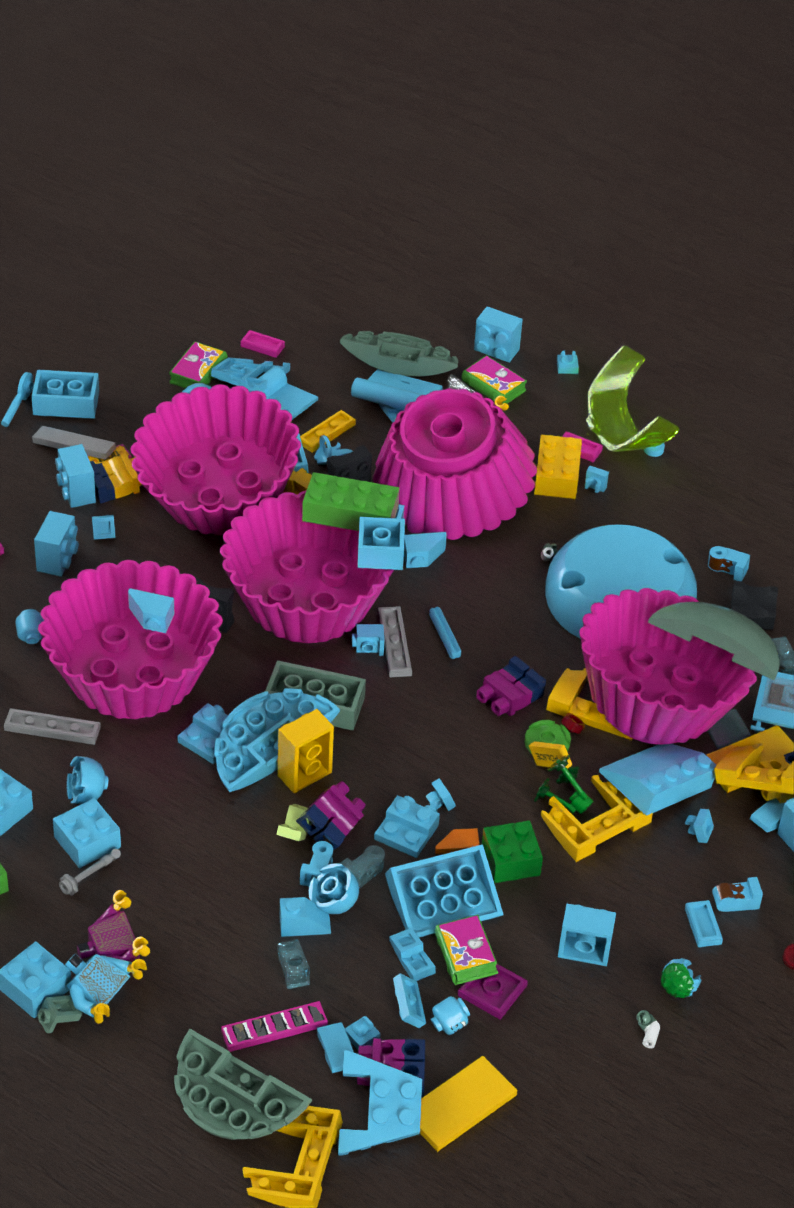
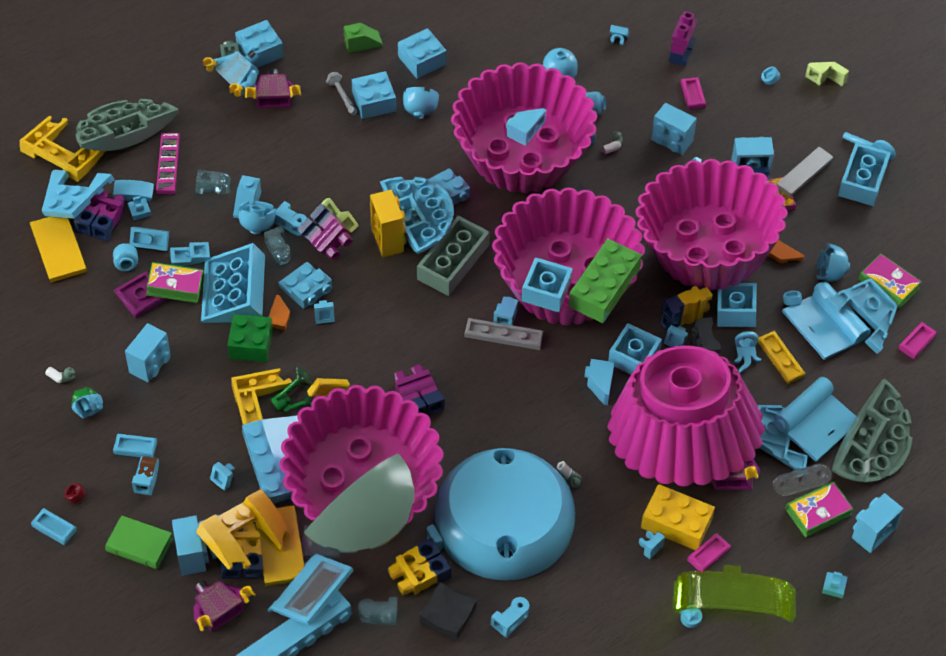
camera: 110 degrees right, 10 degrees up
(445, 632) = (500, 370): medium azure axle -> none

